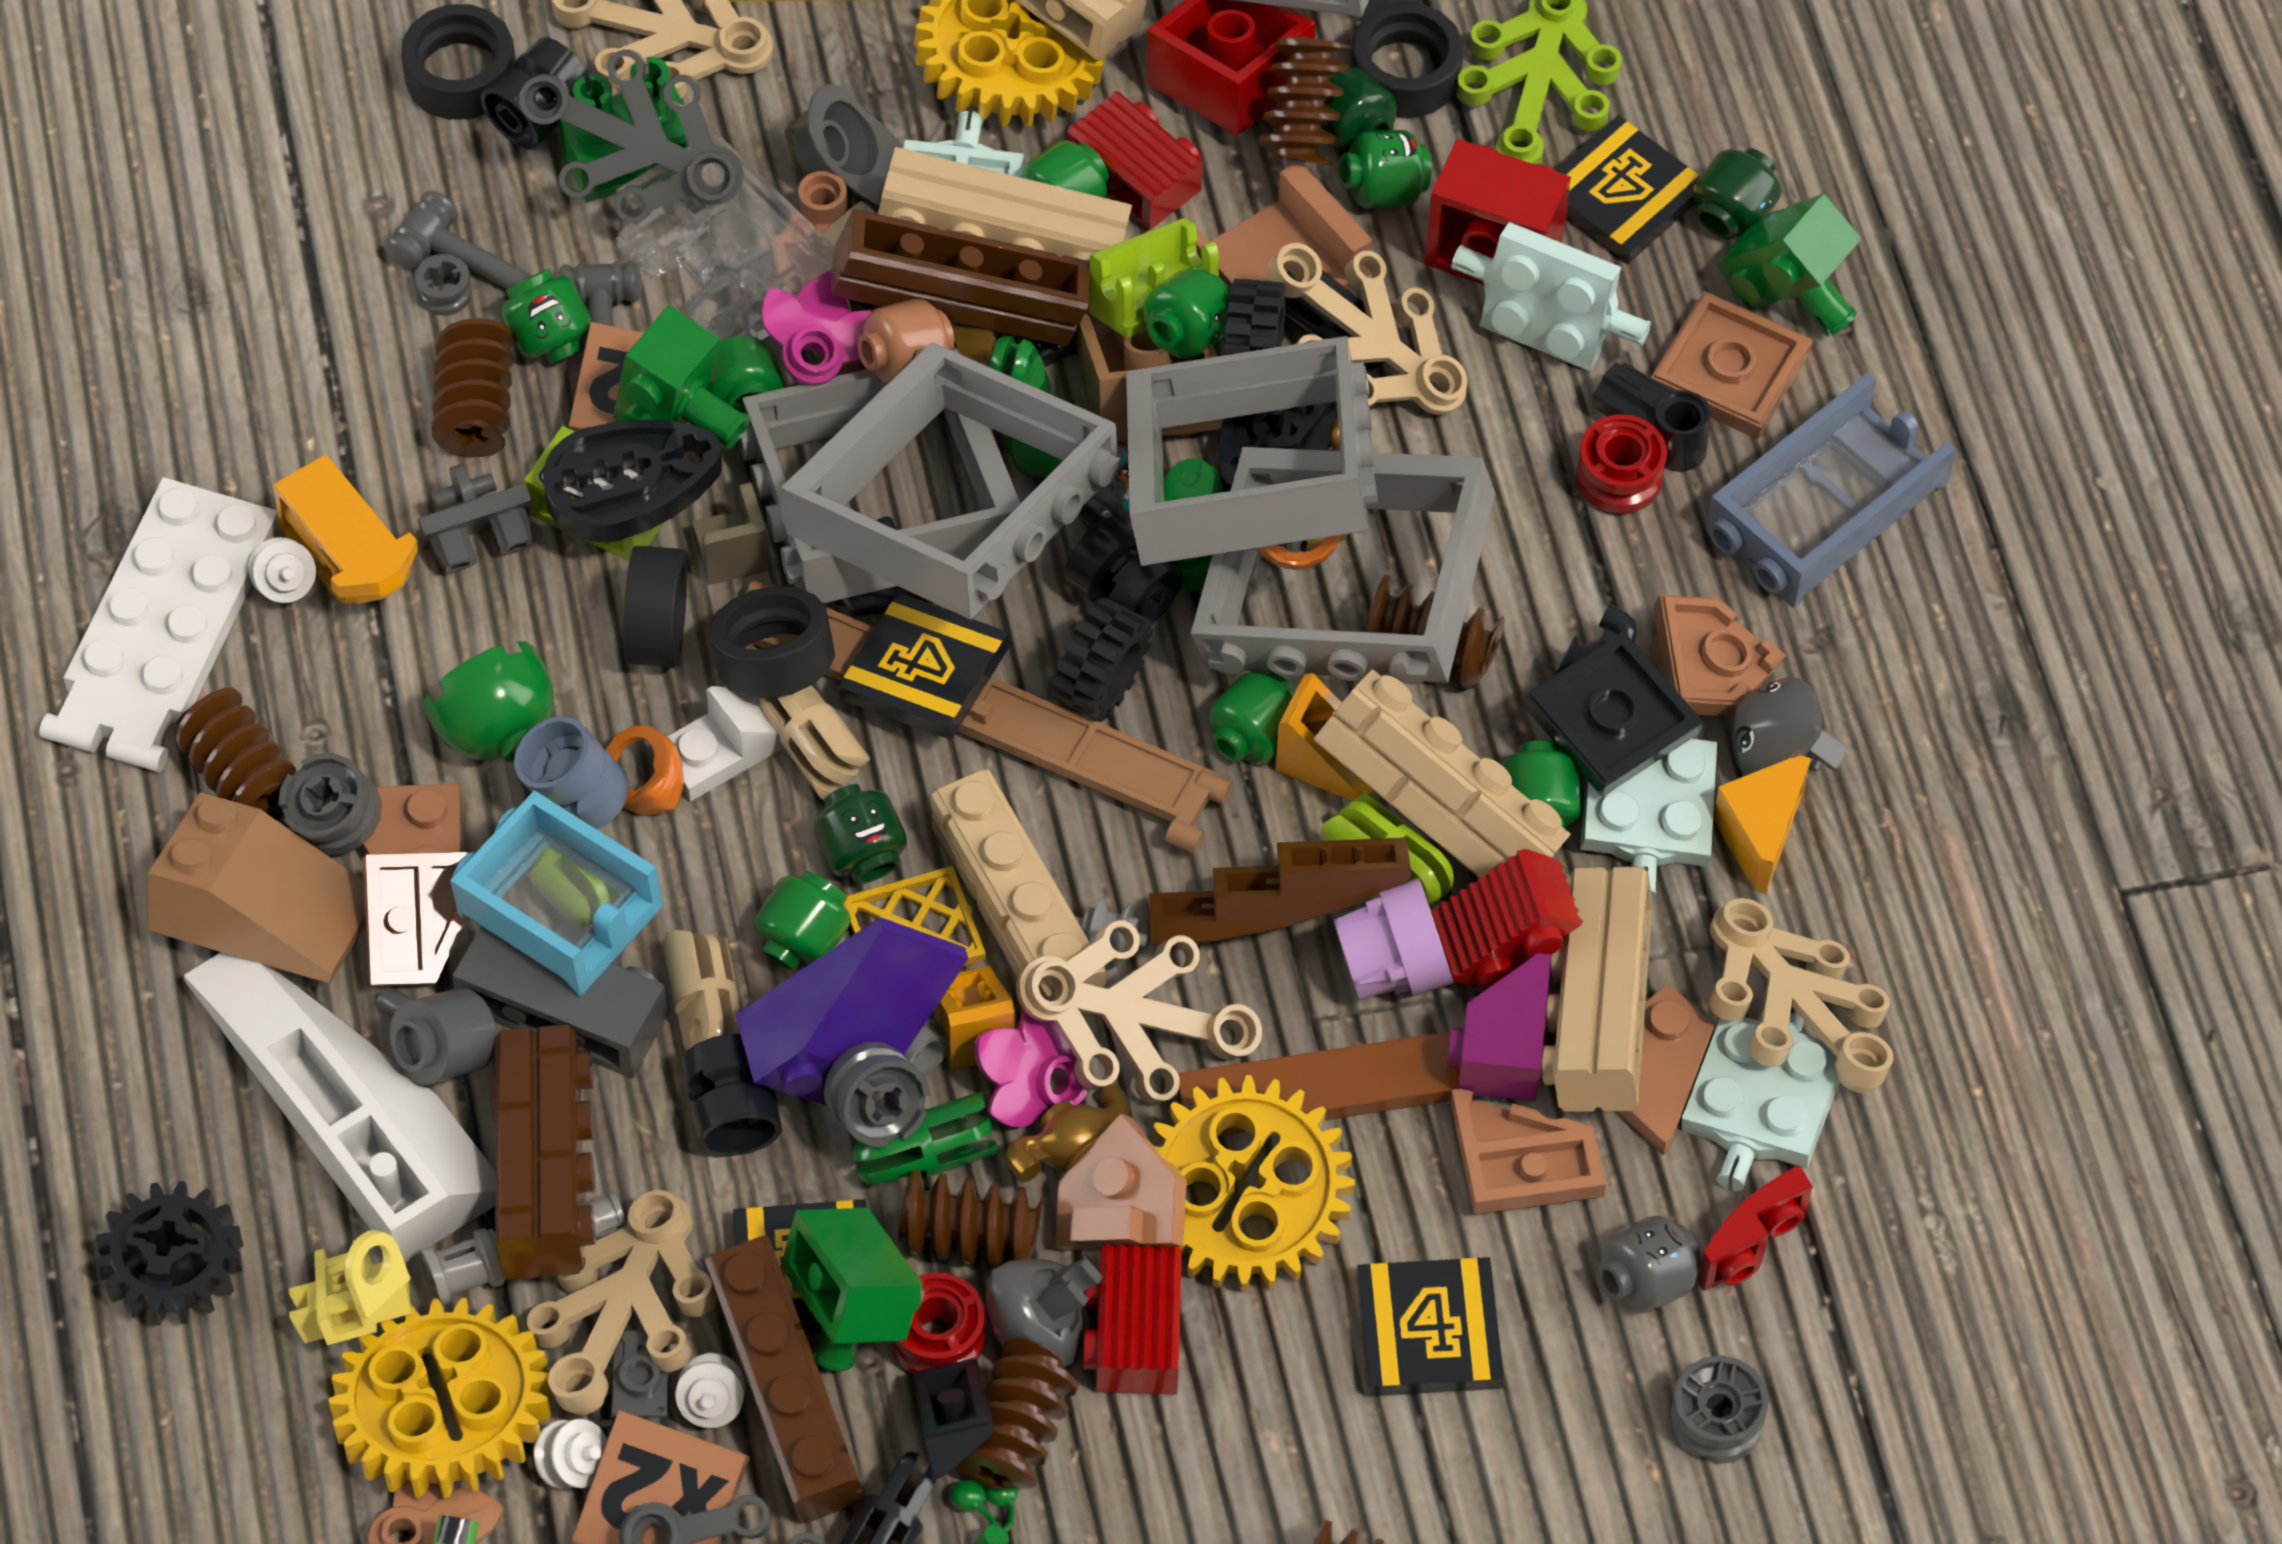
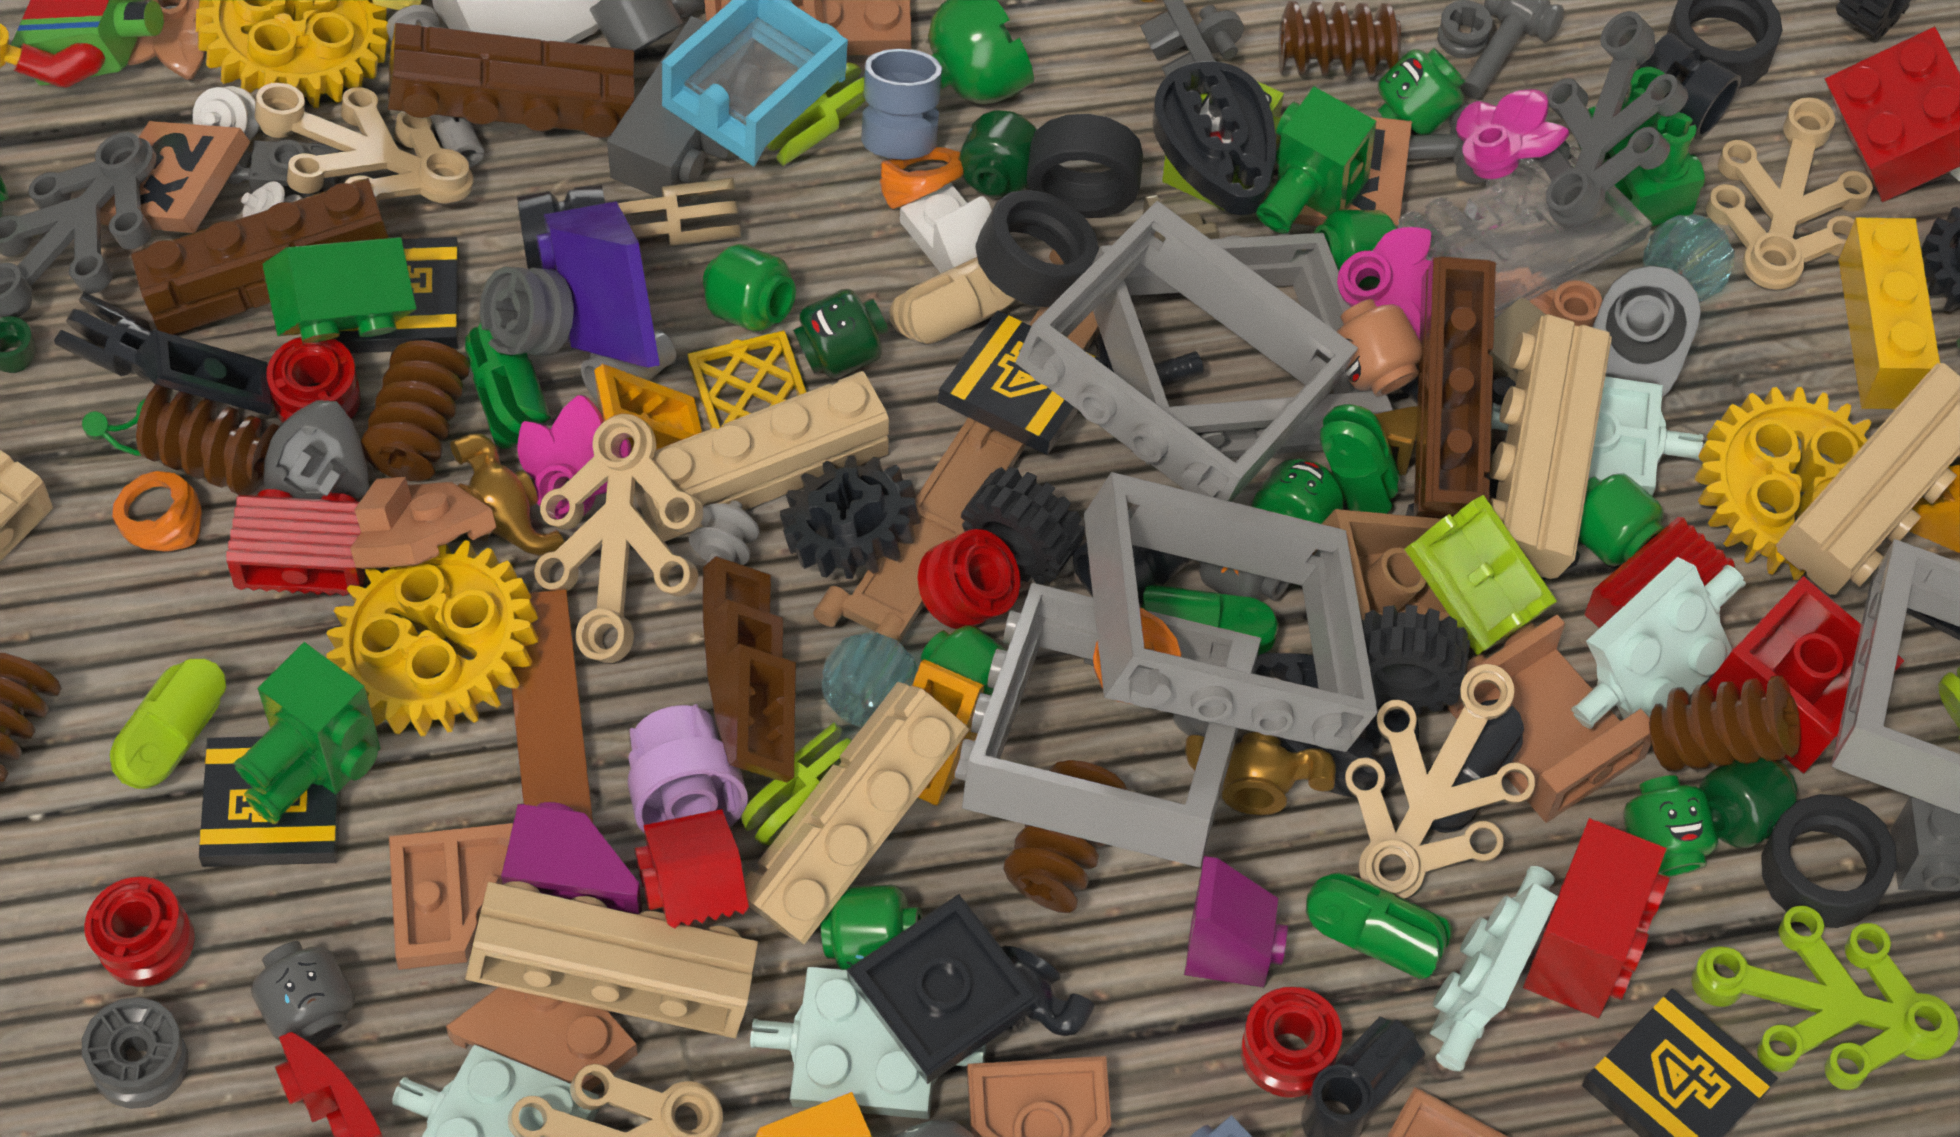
camera: 90 degrees right, 0 degrees up
(610, 227) = (1507, 132): none -> dark pink plate
(622, 692) = (997, 153): none -> dark green head
(754, 106) = (1695, 250): none -> clear light blue piece
(1112, 816) = (850, 517): none -> black gear
(1126, 1471) = (172, 531): none -> orange piece
(1160, 710) = (968, 579): none -> red wheel
(1189, 311) = (1429, 582): green head -> none
(1209, 134) = (1659, 642): none -> light aqua plate
(1275, 795) = (863, 674): none -> clear light blue piece
(1357, 1421) = (167, 723): none -> lime arm
(1390, 1249) = (316, 733): none -> green brick
(1499, 393) = (1378, 923): none -> green arm
(1522, 506) = (1233, 928): none -> magenta slope
(1601, 1388) = (124, 910): none -> red wheel

